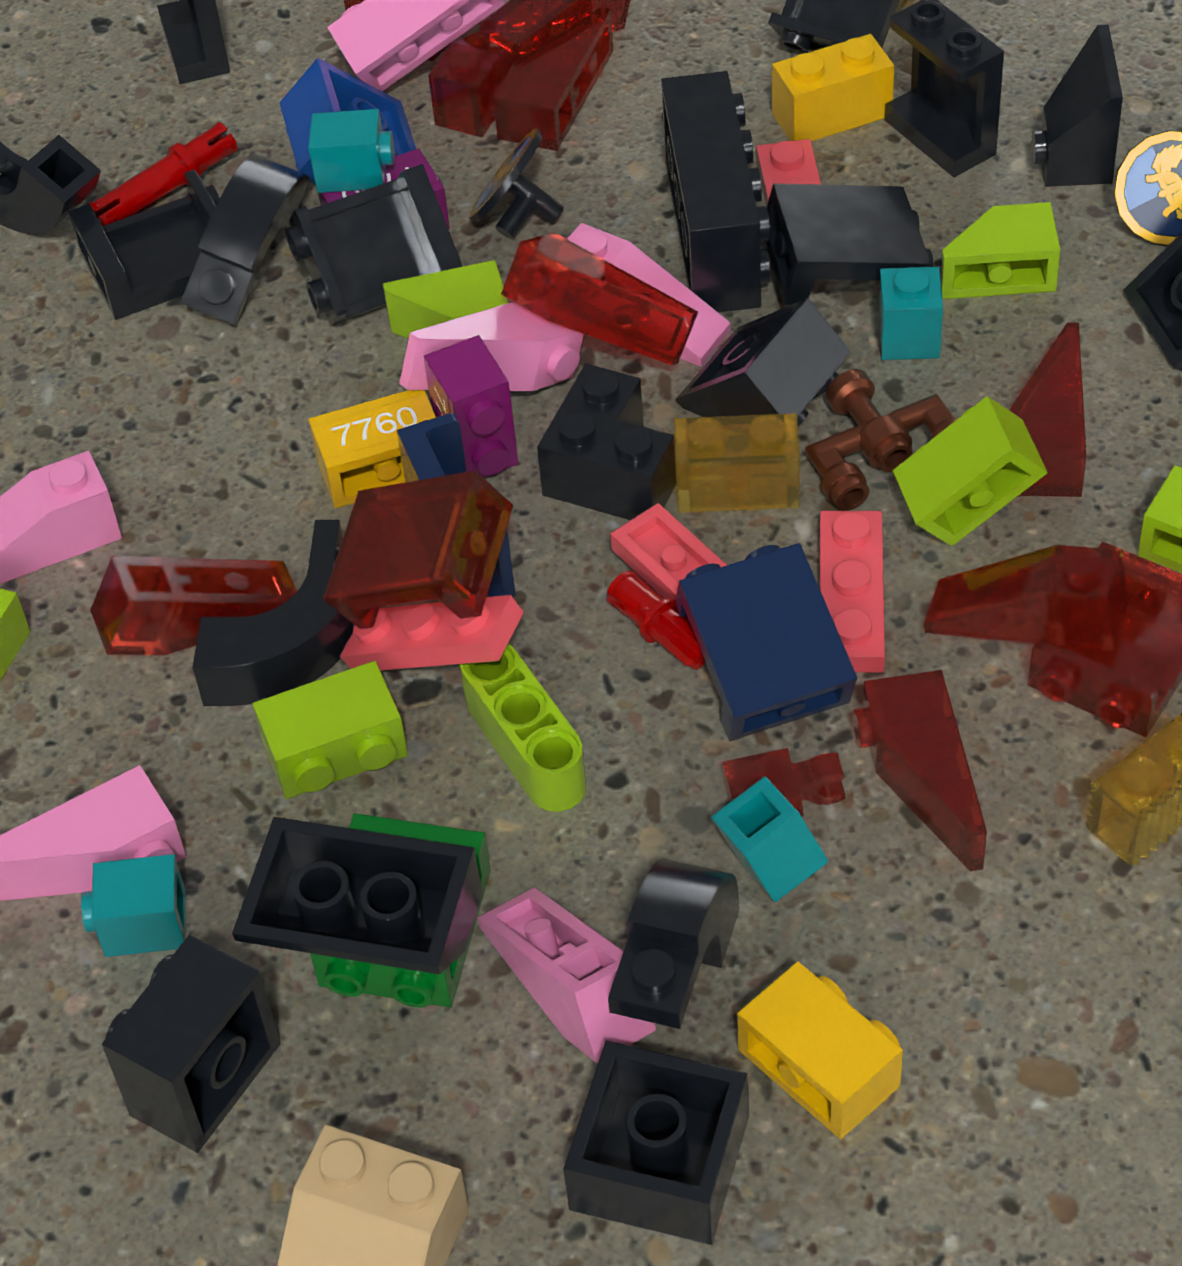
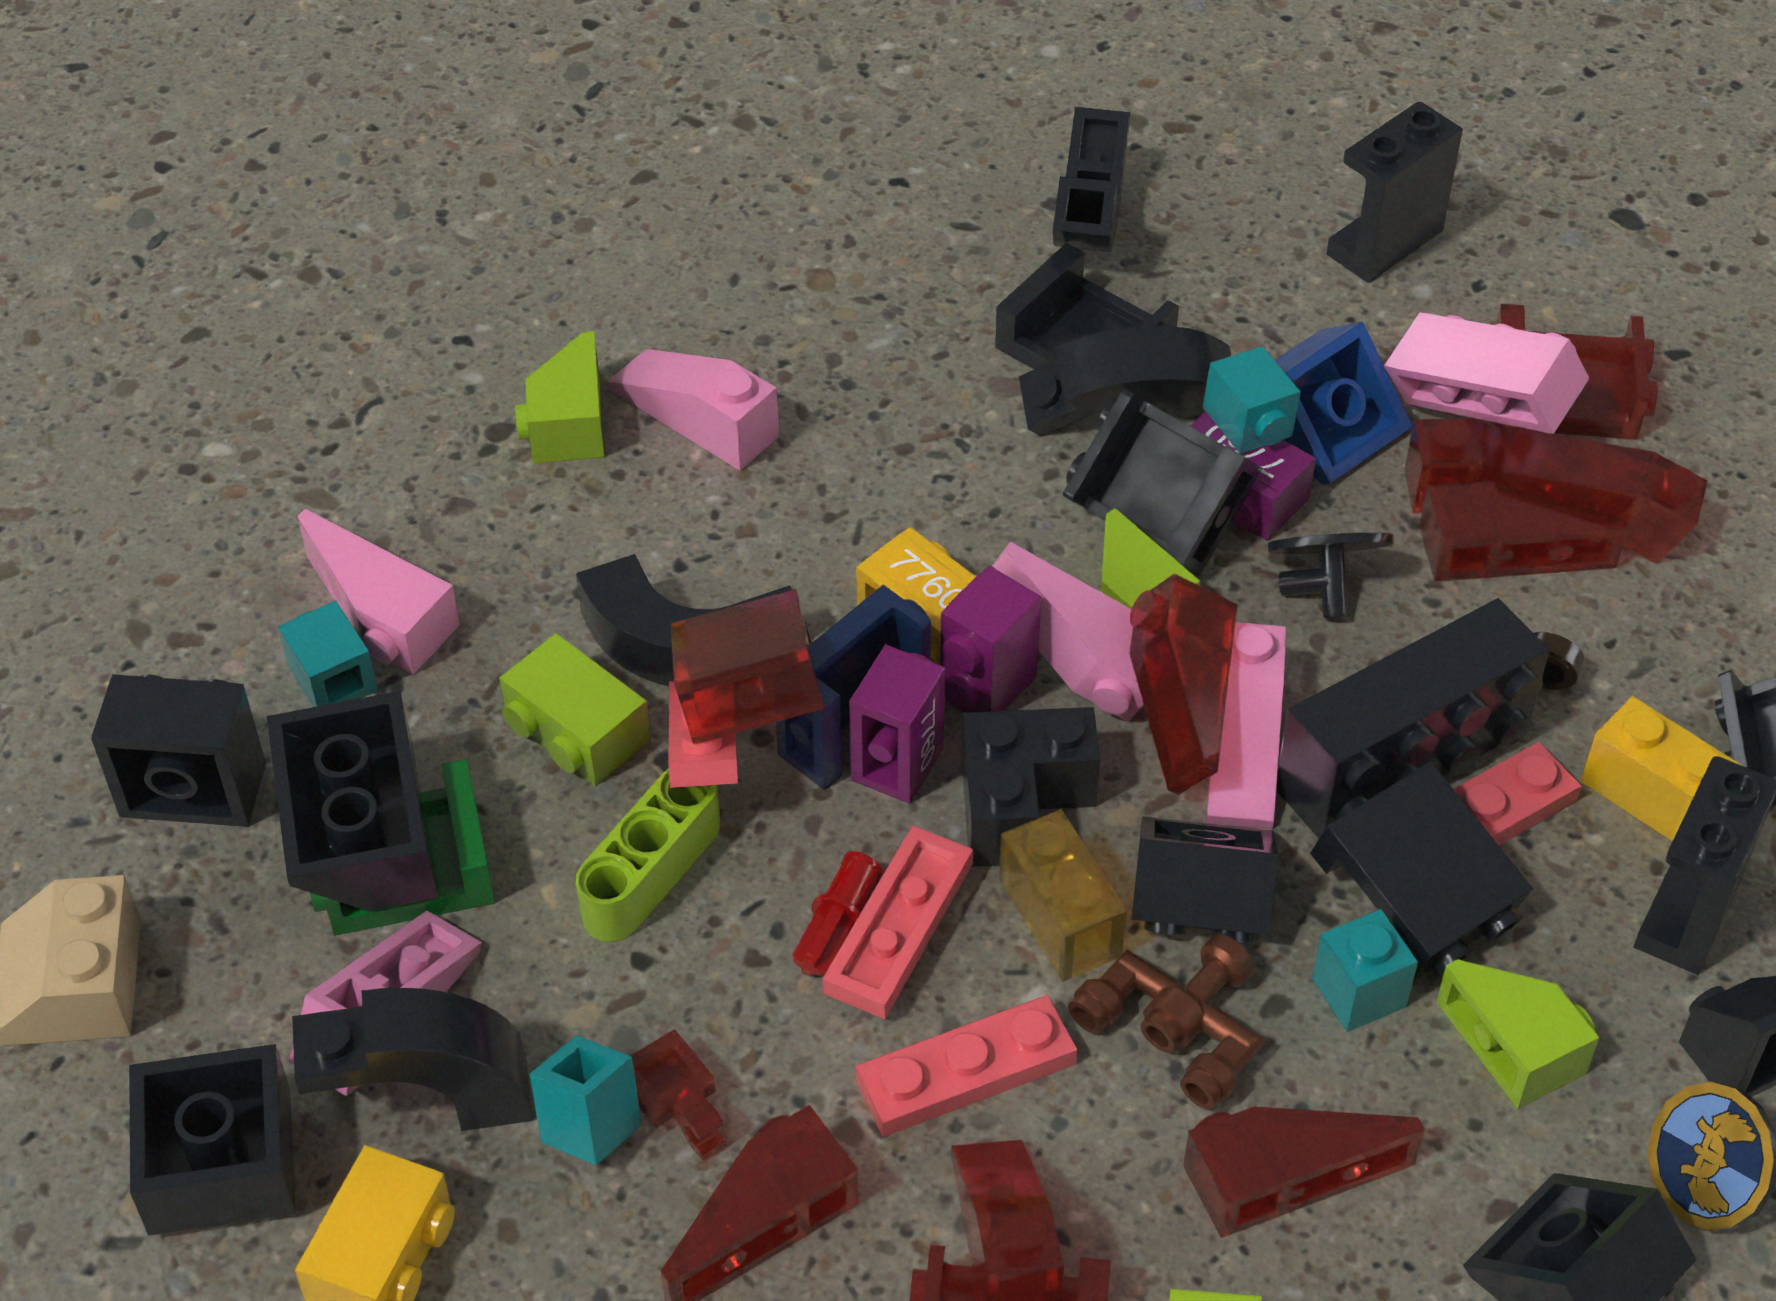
camera: 60 degrees right, 0 degrees up
(159, 601) = (675, 547): clear red slope -> none
(165, 175) = (1196, 299): red pin -> none
(531, 482) = (897, 723): none -> magenta brick
(766, 639) = (827, 998): dark blue panel -> none
(969, 471) = (1143, 1099): lime brick -> none

